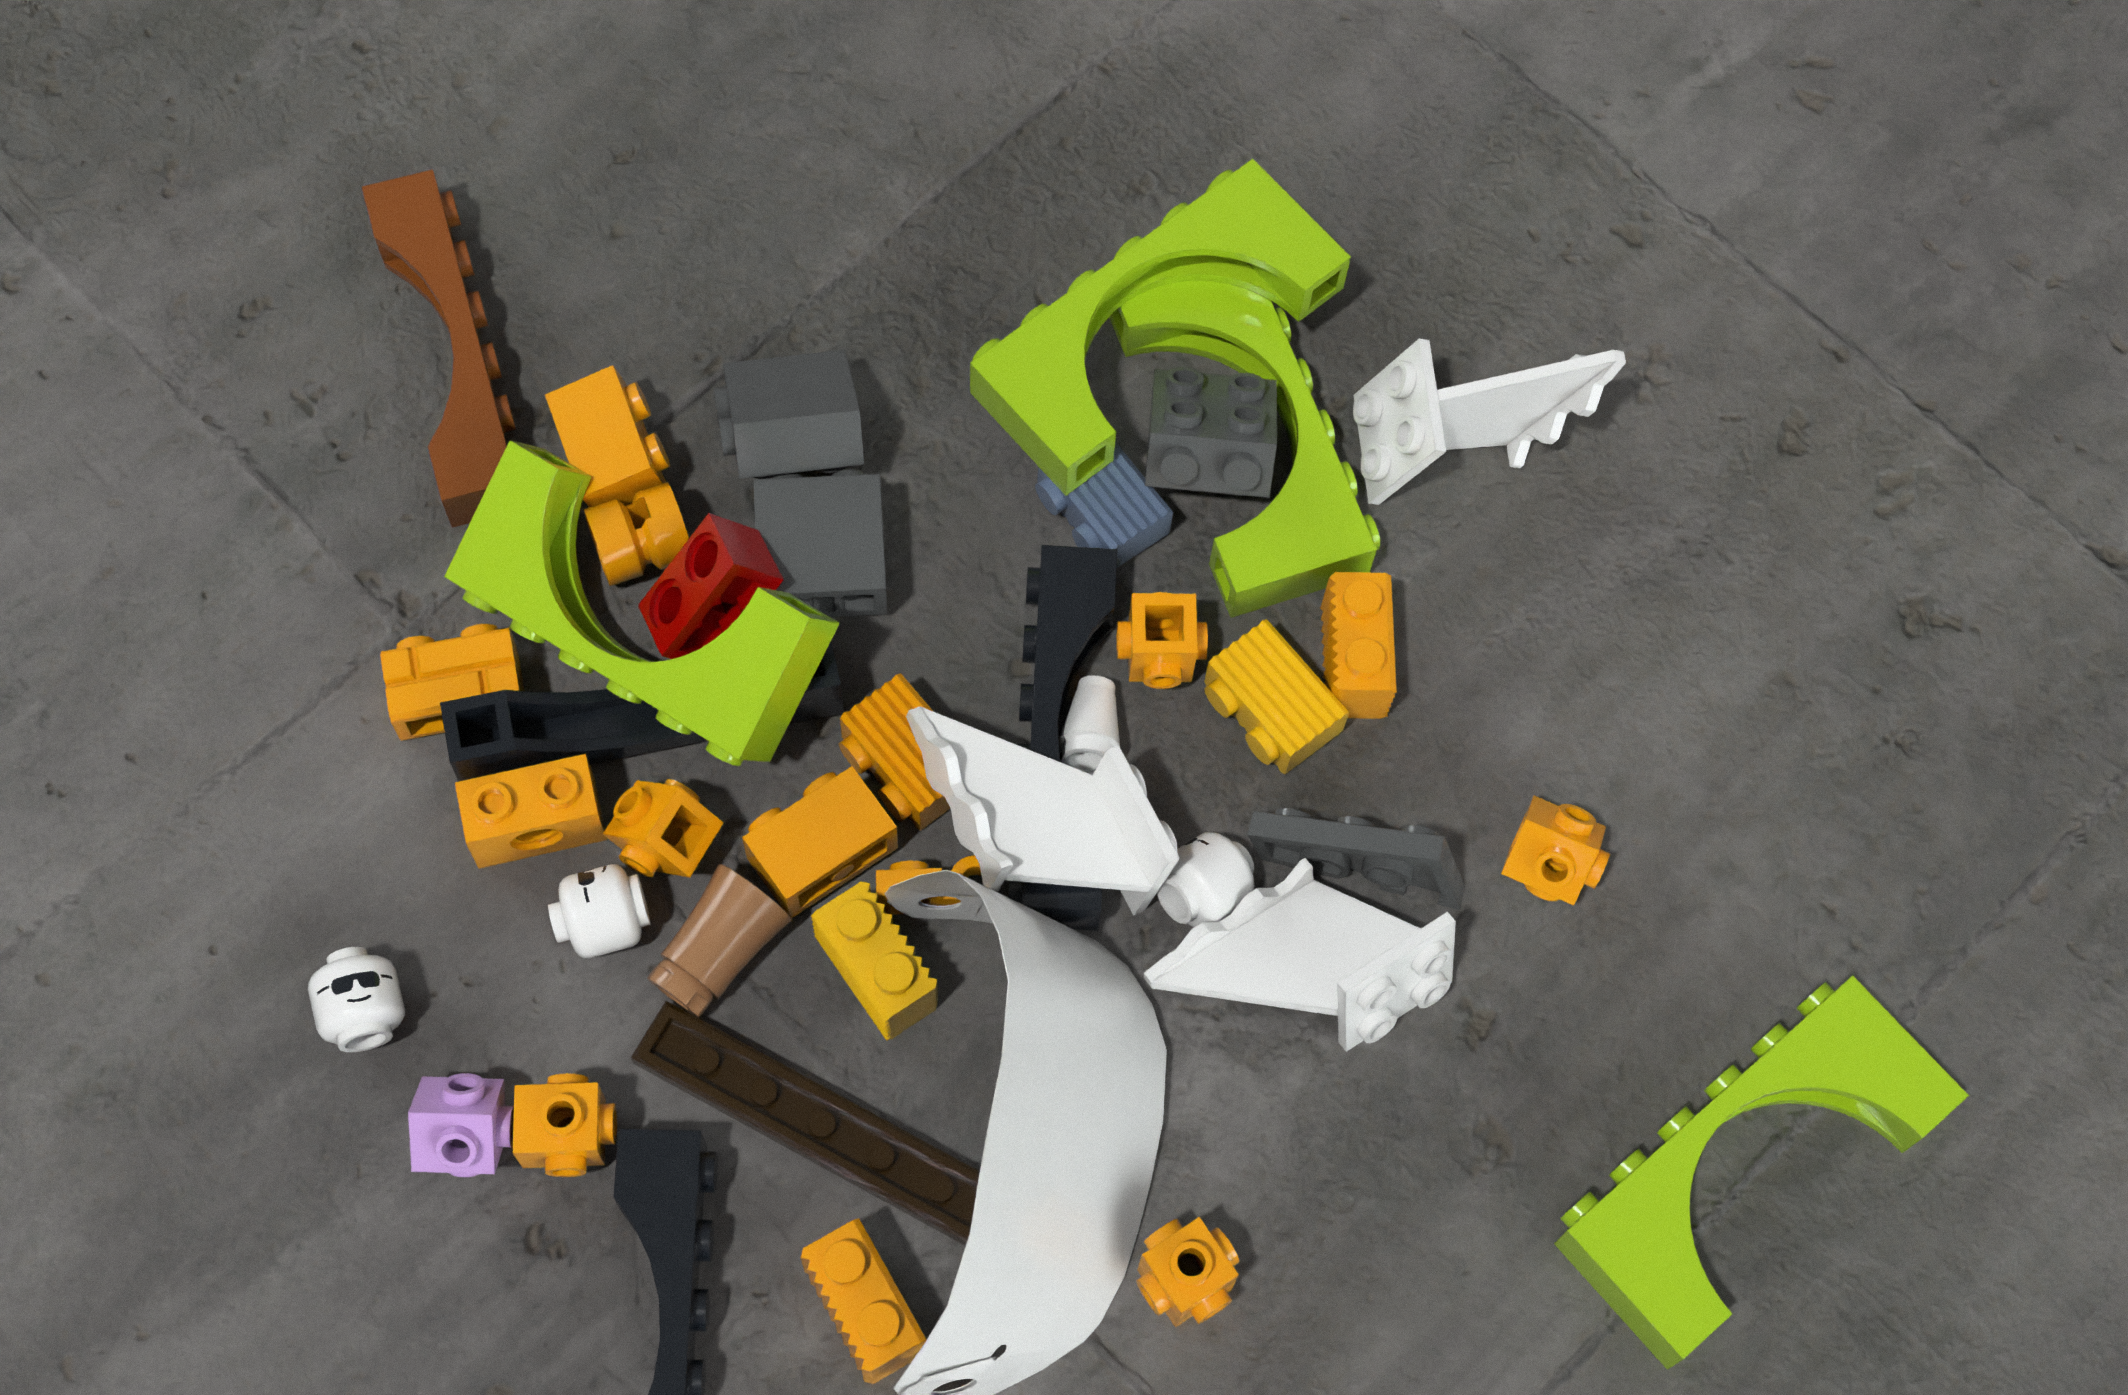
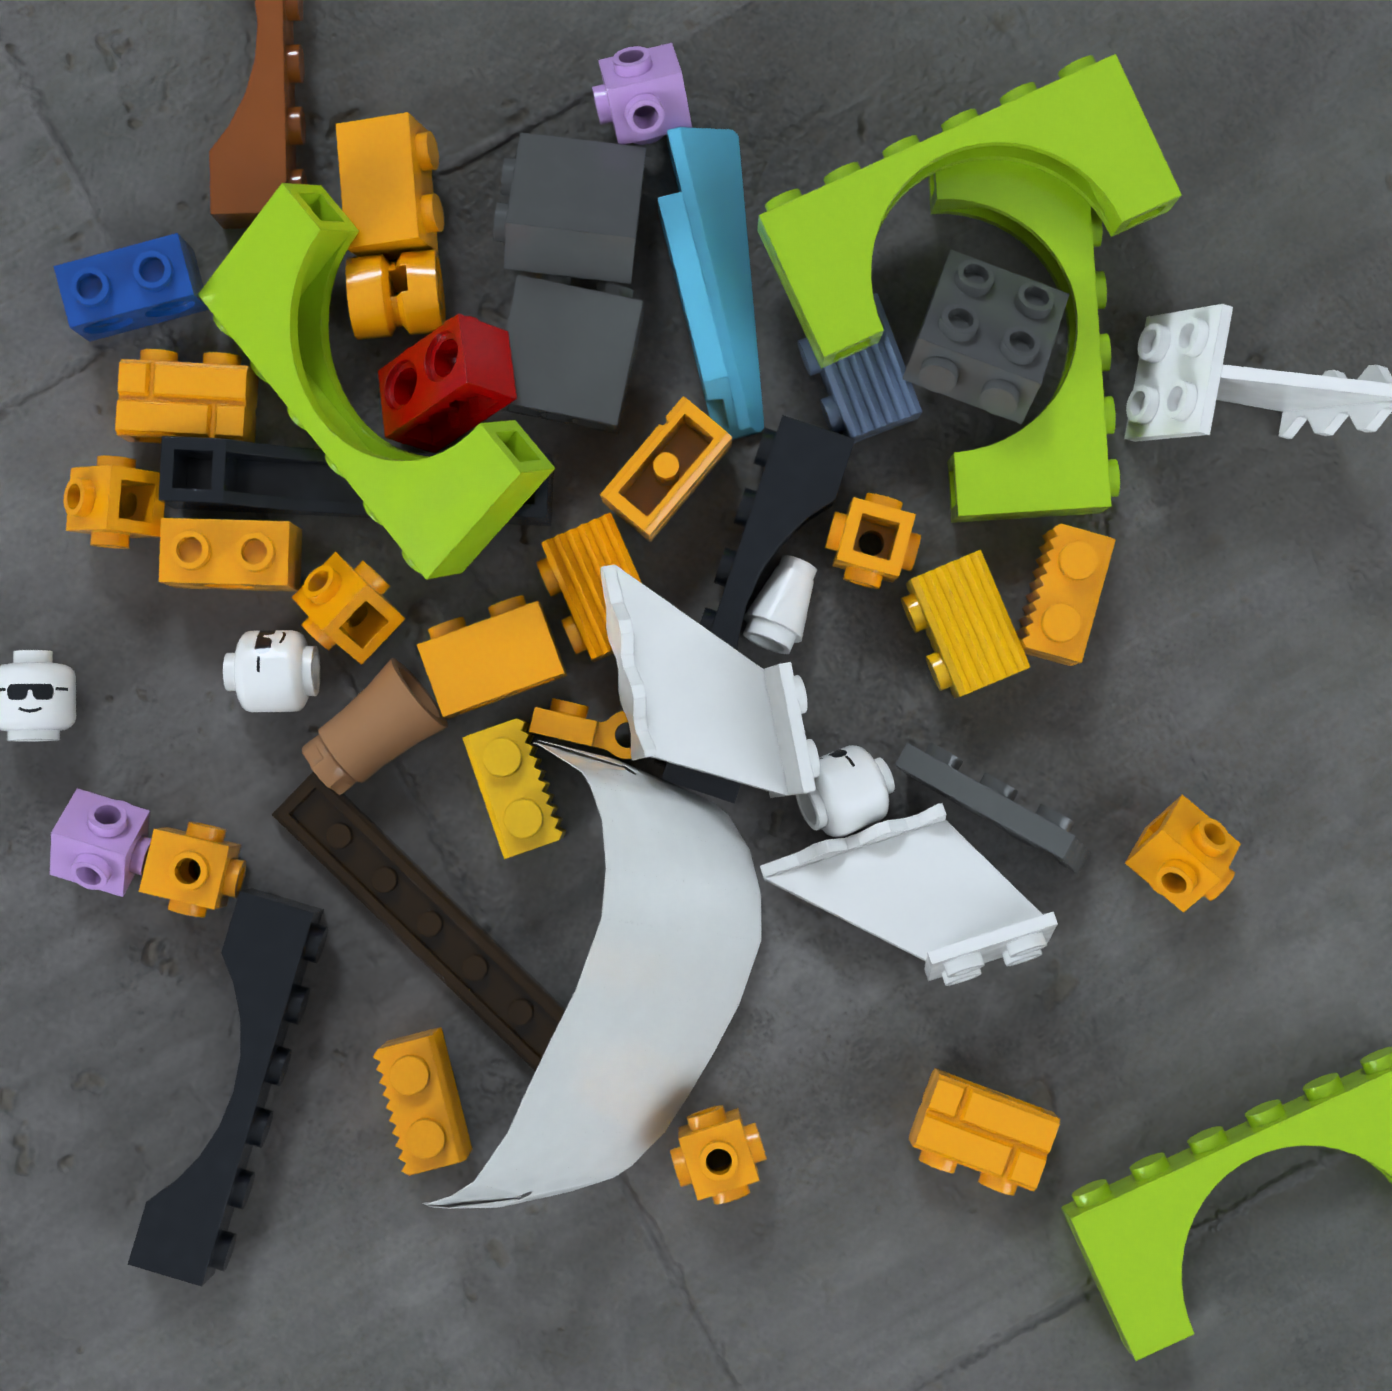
camera: 20 degrees right, 20 degrees up
(376, 590) = (130, 287): none -> blue brick
(403, 788) = (113, 502): none -> light orange brick
(829, 308) = (642, 94): none -> lavender brick
(936, 454) = (712, 272): none -> medium azure wedge
(944, 622) = (666, 469): none -> light orange brick
(1450, 1177) = (984, 1132): none -> light orange brick

